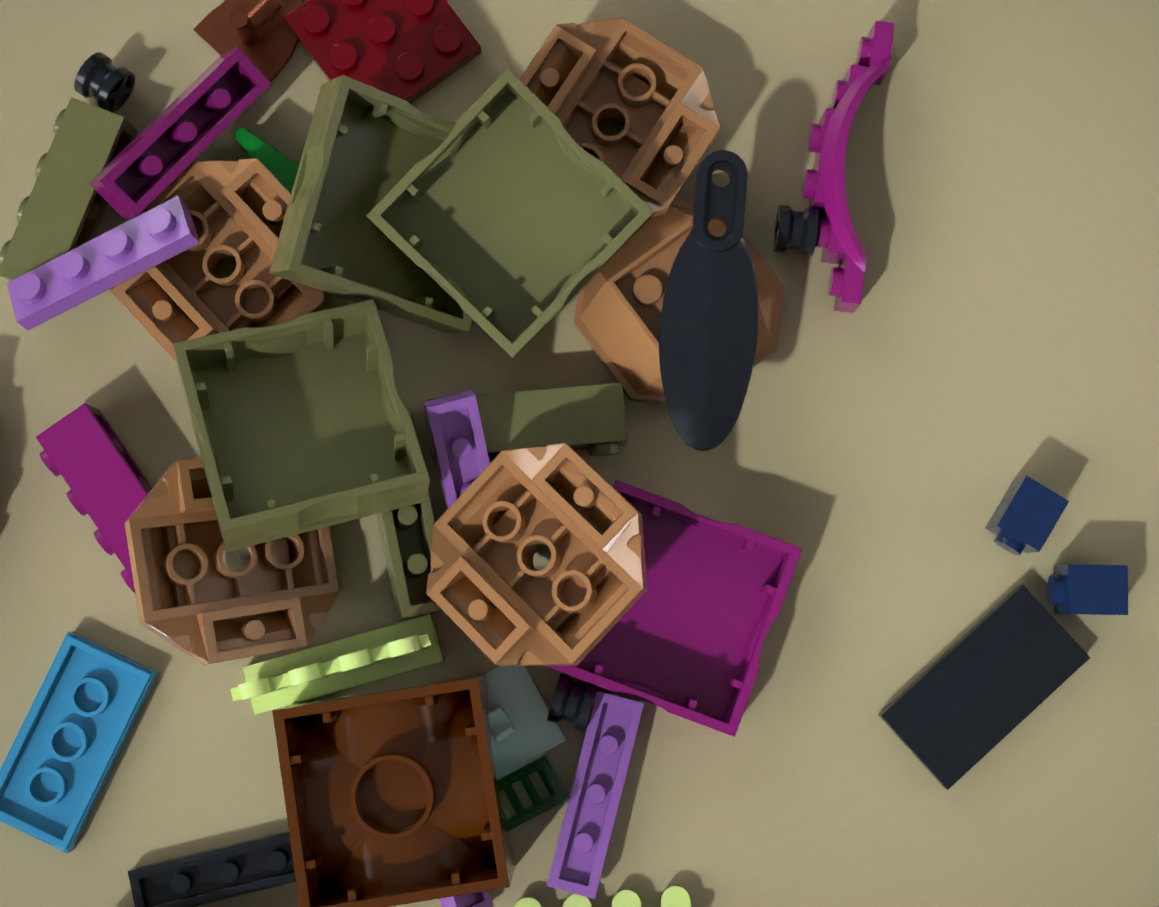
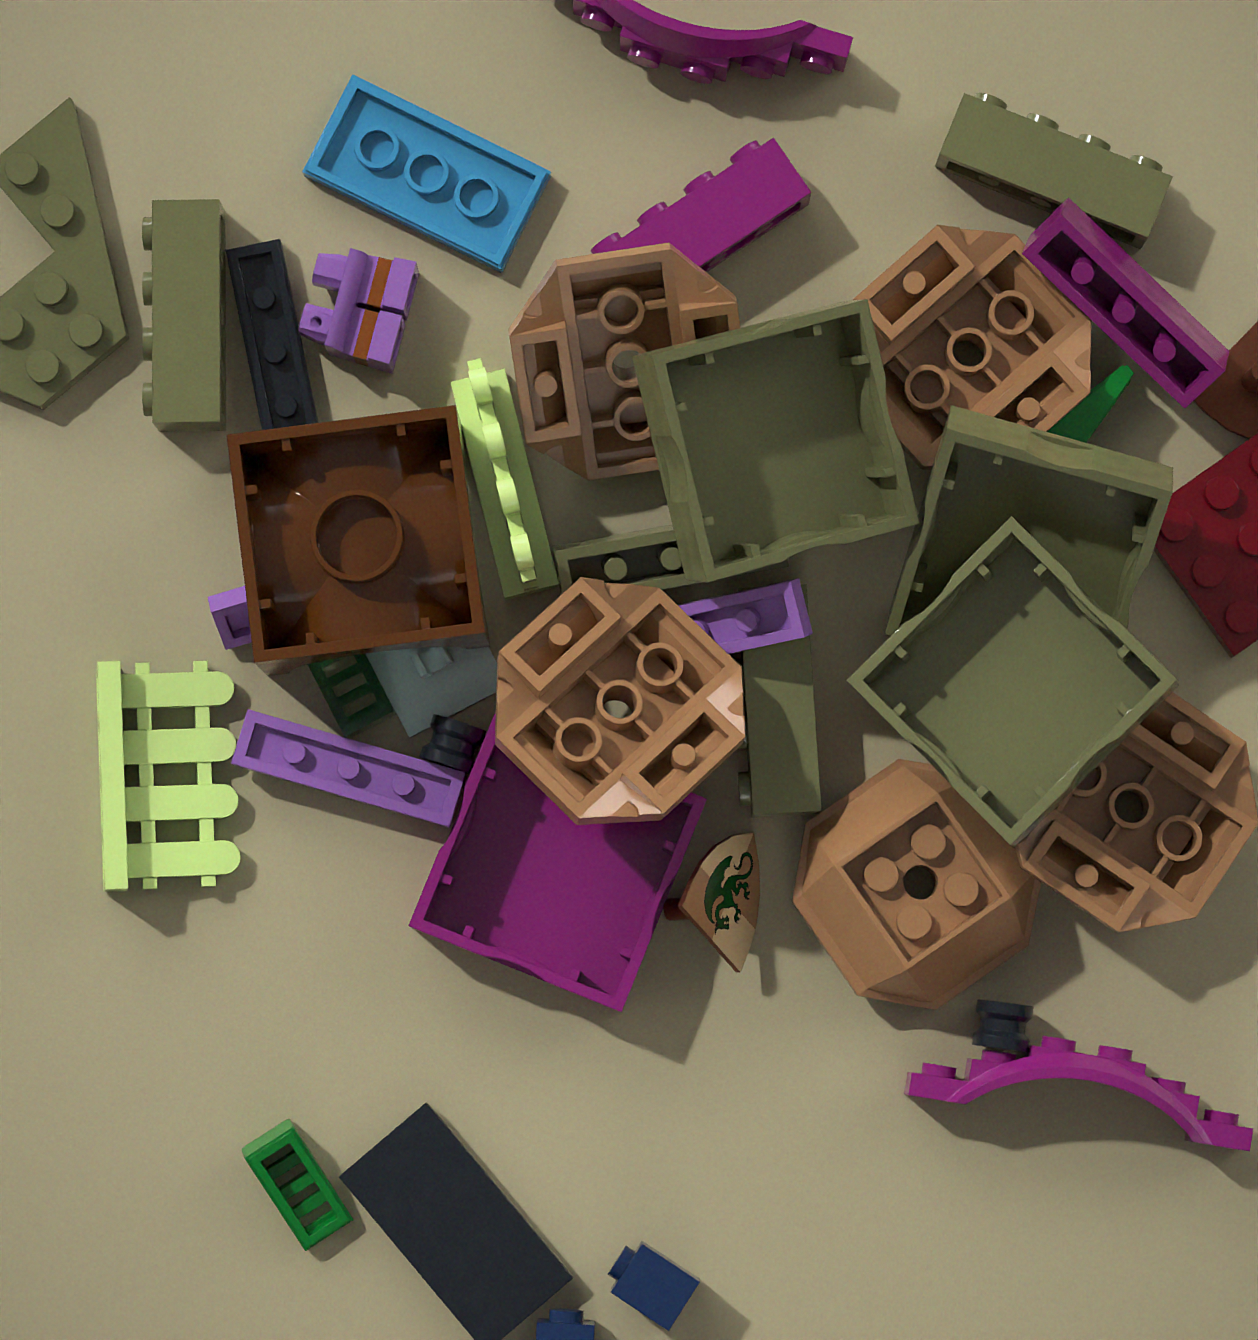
camera: 90 degrees right, 0 degrees up
(102, 263) = (970, 216): medium lavender plate -> none
(104, 82) = (1195, 213): black wheel -> none
(190, 790) = (368, 309): none -> medium lavender hips
(697, 471) = (723, 897): none -> shield
(710, 312) = (894, 911): black plant -> none
(920, 848) = (270, 1143): none -> green slope

